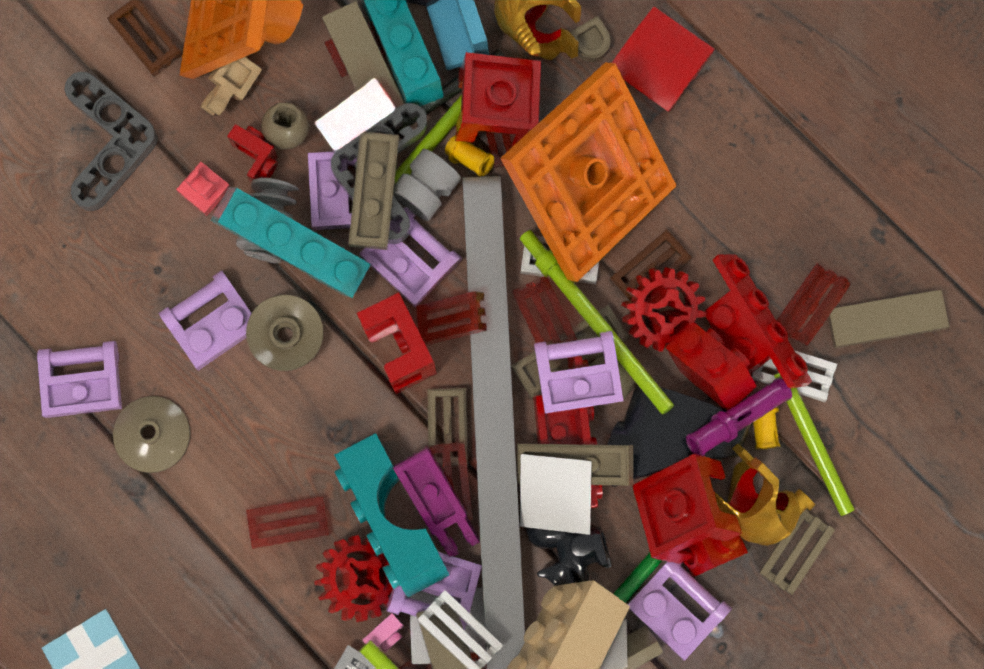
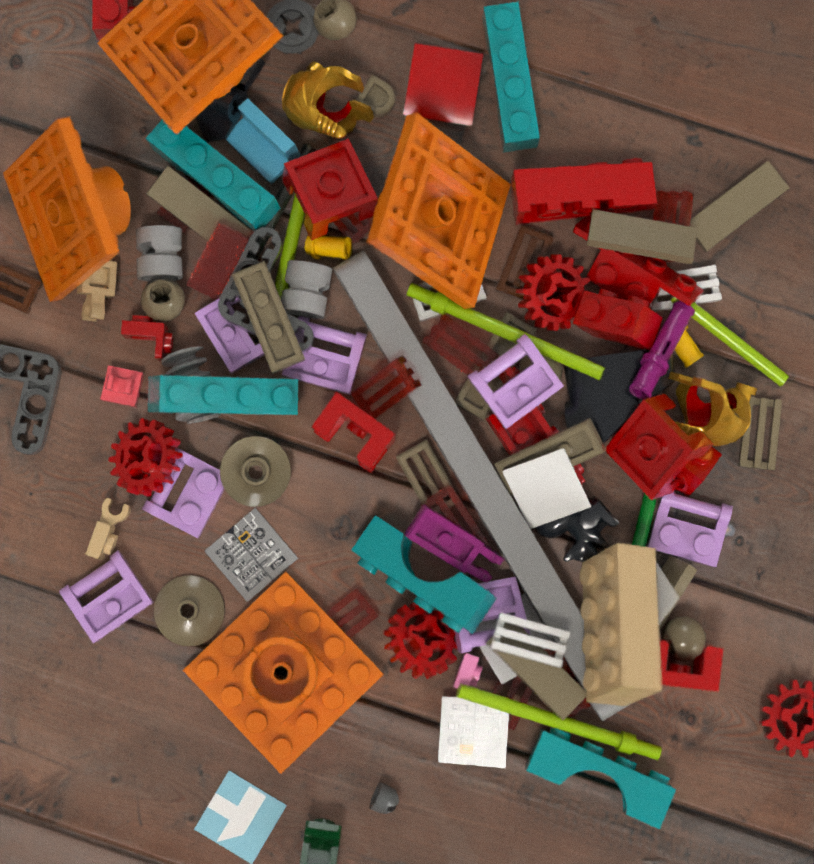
camera: 30 degrees left, 5 degrees up
(106, 321) = (103, 538): none -> tan plate
(187, 265) = (144, 456): none -> red gear
(239, 411) = (251, 554): none -> light grey sticker
(248, 546) = (322, 664): none -> orange piece
(305, 79) = (159, 252): none -> light grey wheel
(729, 83) = (511, 76): none -> teal arch
(742, 226) = (577, 190): none -> red wedge
(776, 297) = (642, 236): none -> dark tan tile

